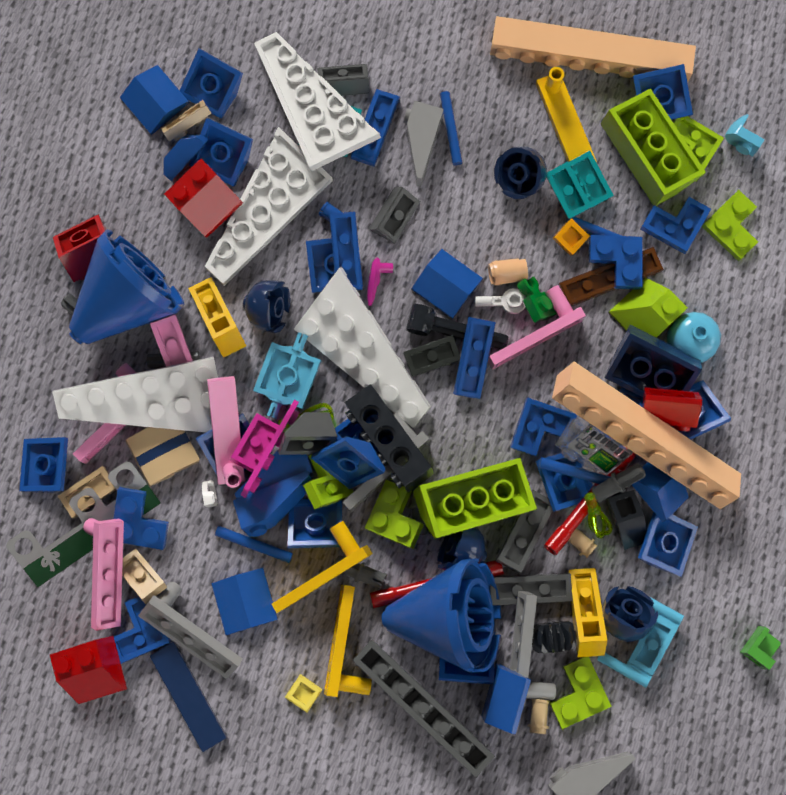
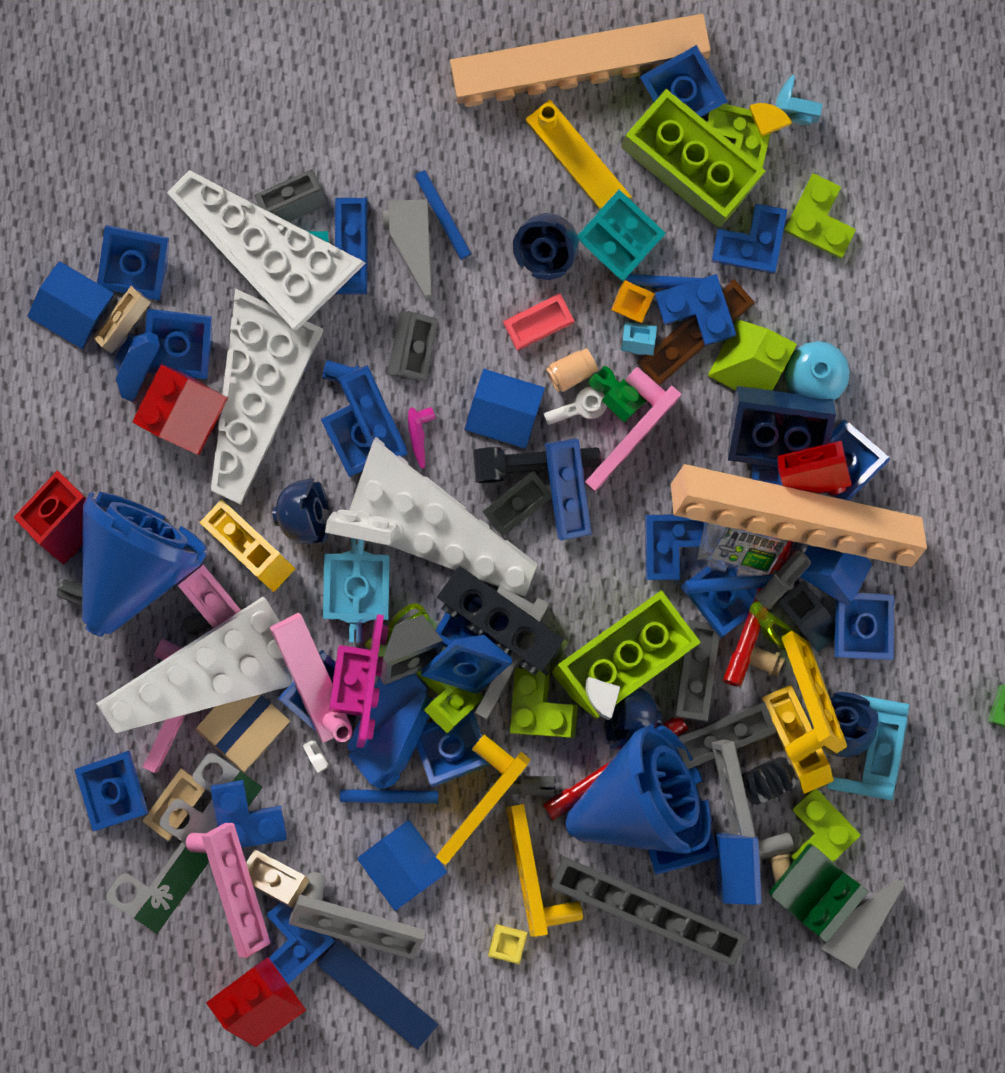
camera: 15 degrees left, 5 degrees up
(314, 334) = (348, 524): none -> white plate
(445, 522) = (602, 696): none -> white tile
(495, 229) = (538, 322): none -> coral tile
(563, 741) = (818, 892): none -> dark green bracket
(566, 265) = (639, 338): none -> medium azure plate
(614, 588) = (819, 706): none -> yellow piece
(719, 137) = (768, 118): none -> yellow tile

